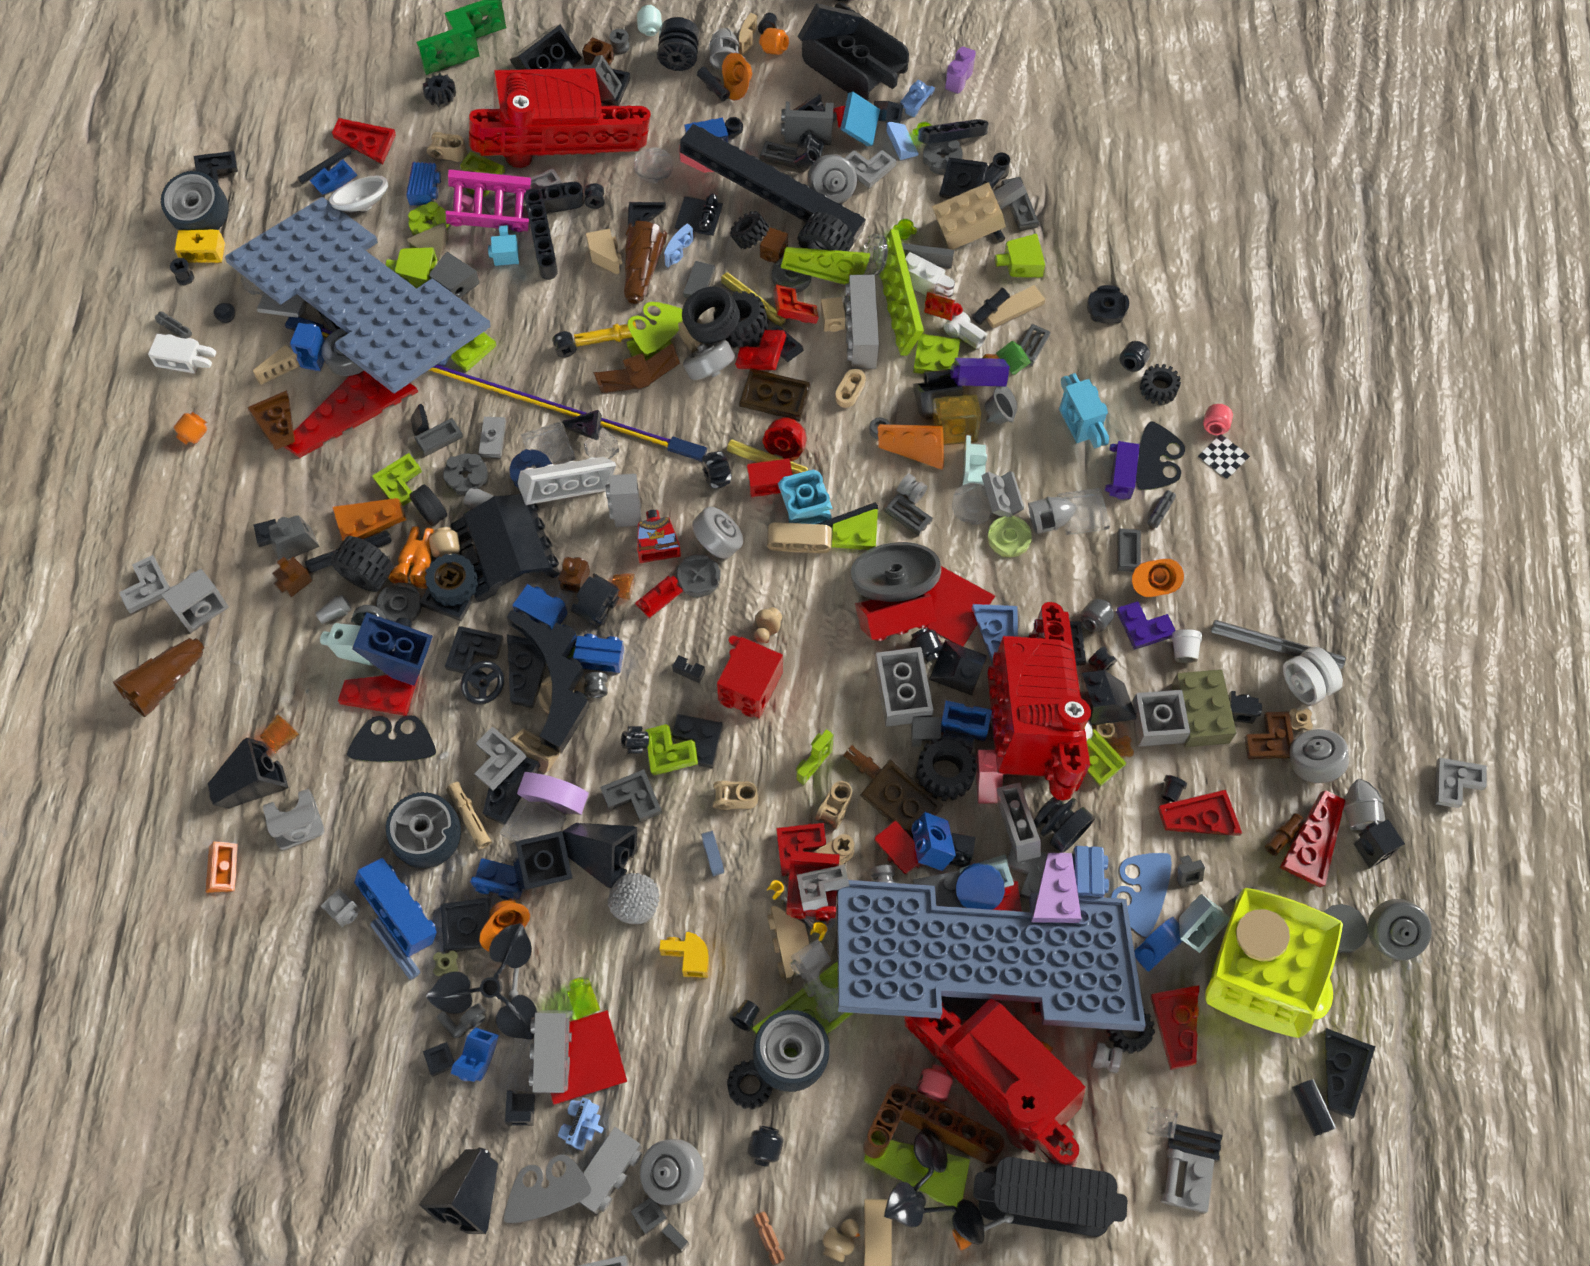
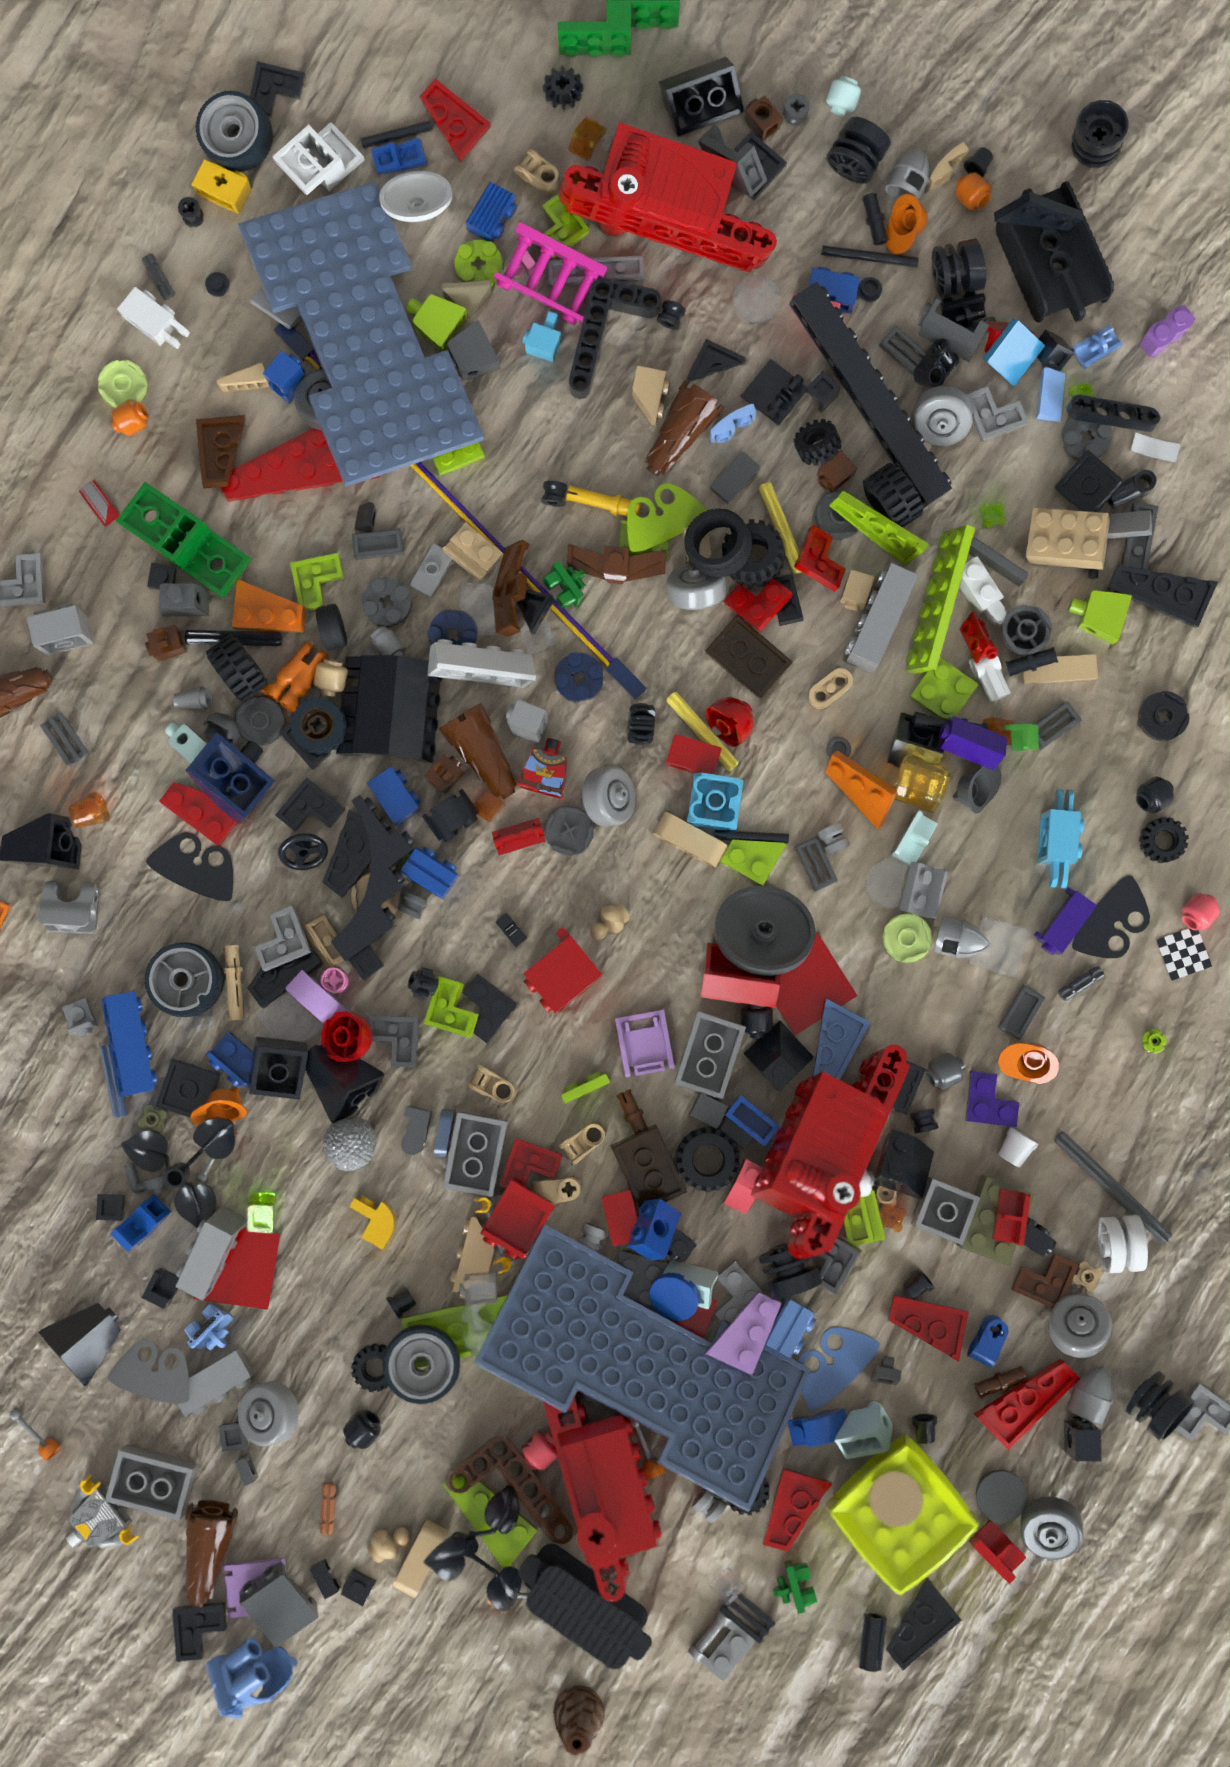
camera: 30 degrees right, 20 degrees up
(170, 407) = (122, 382): none -> yellowish green tile
(190, 502) = (99, 503): none -> sticker
(218, 680) = (53, 722): none -> dark grey tile
(270, 196) = (318, 158): none -> white bracket
(274, 491) = (184, 540): none -> green bracket
(466, 109) = (586, 137): none -> clear orange bracket
(519, 408) = (472, 552): none -> tan plate
(556, 767) = (330, 980): none -> bright pink wheel
(562, 417) = (509, 589): none -> reddish brown plate
(578, 747) = (366, 963): none -> black plate
(589, 805) = (346, 1036): none -> red cylinder
(593, 540) = (480, 748): none -> reddish brown cone
(606, 399) = (569, 581): none -> green hips
(645, 452) = (577, 663): none -> dark blue plate
(689, 870) = (417, 1131): none -> dark grey leg
(721, 108) = (869, 256): none -> black bar
(736, 196) = (823, 390): none -> black panel
(748, 854) = (475, 1154): none -> light grey brick
(791, 84) = (958, 268): none -> black wheel
(816, 883) = (521, 1222): light grey plate -> none
(848, 710) = (645, 1047): none -> lavender container
(878, 251) = (940, 537): clear tile -> none
(974, 285) = (1026, 630): none -> dark grey cylinder
(995, 145) = (1155, 448): none -> white sticker
(1018, 822) = (746, 1250): light grey brick -> none
(1067, 225) = (1169, 594): none -> black wing
(1099, 797) = (838, 1264): none -> dark grey plate
(1216, 689) = (1011, 1216): none -> red panel
(1218, 1094) = (802, 1597): none -> green hips
(1240, 529) = (1149, 1036): none -> lime plate
(1256, 810) = (987, 1344): none -> blue piece
(1368, 975) = (998, 1550): none -> red panel
(1417, 783) = (1162, 1408): none -> black wheel

